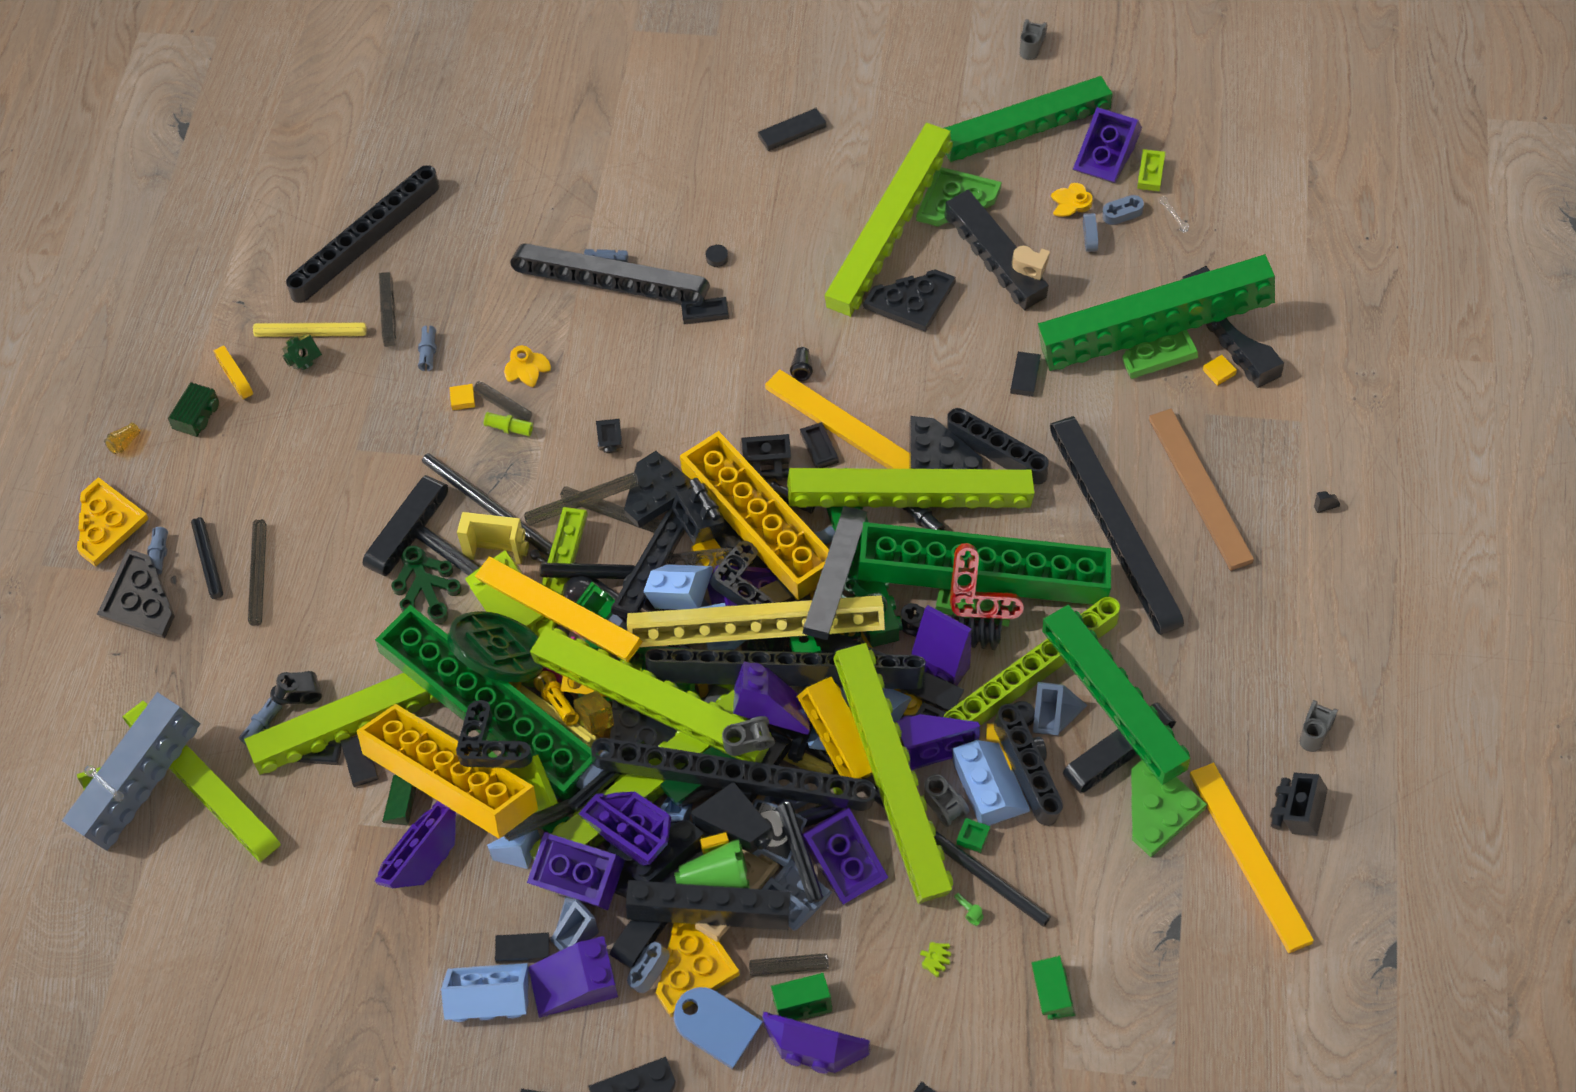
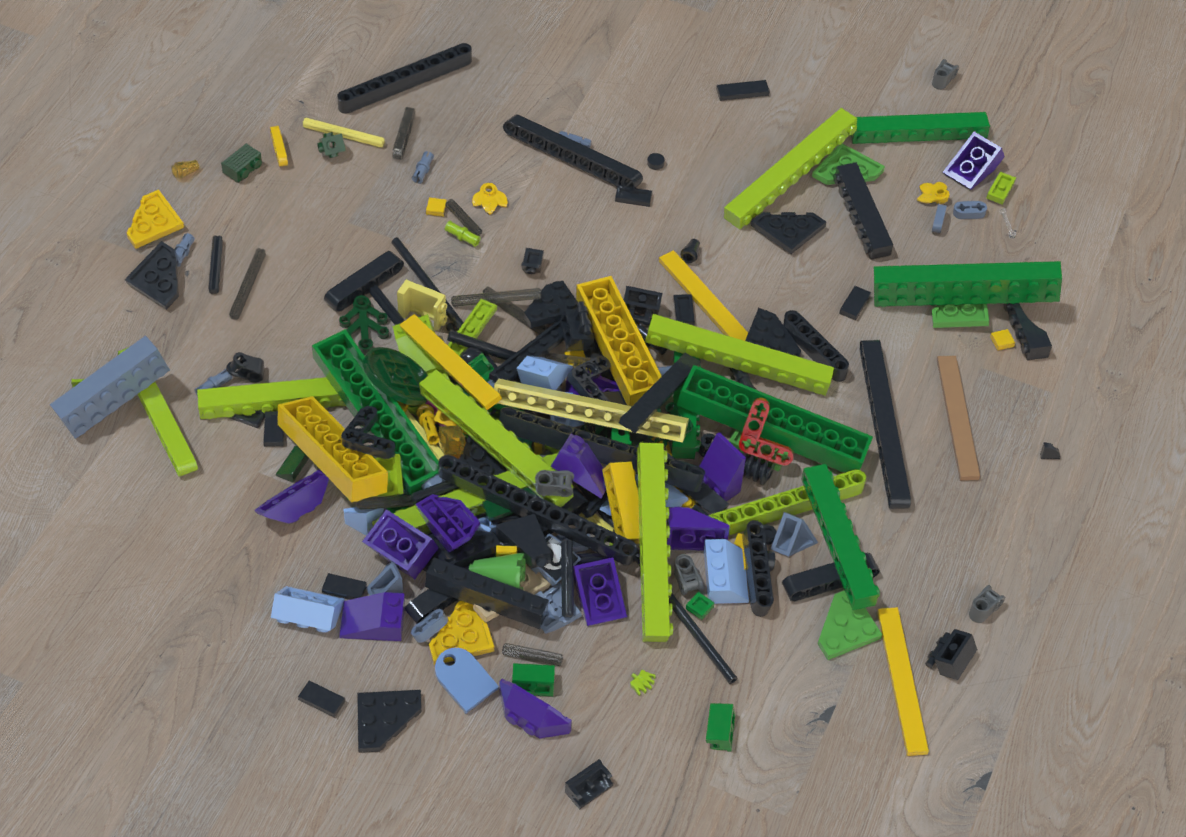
camera: 10 degrees right, 5 degrees down
(91, 772) = (80, 375): clear hinge -> none
(975, 914) = (681, 659): bright green hand -> none
(1030, 262) = (884, 224): tan leg -> none

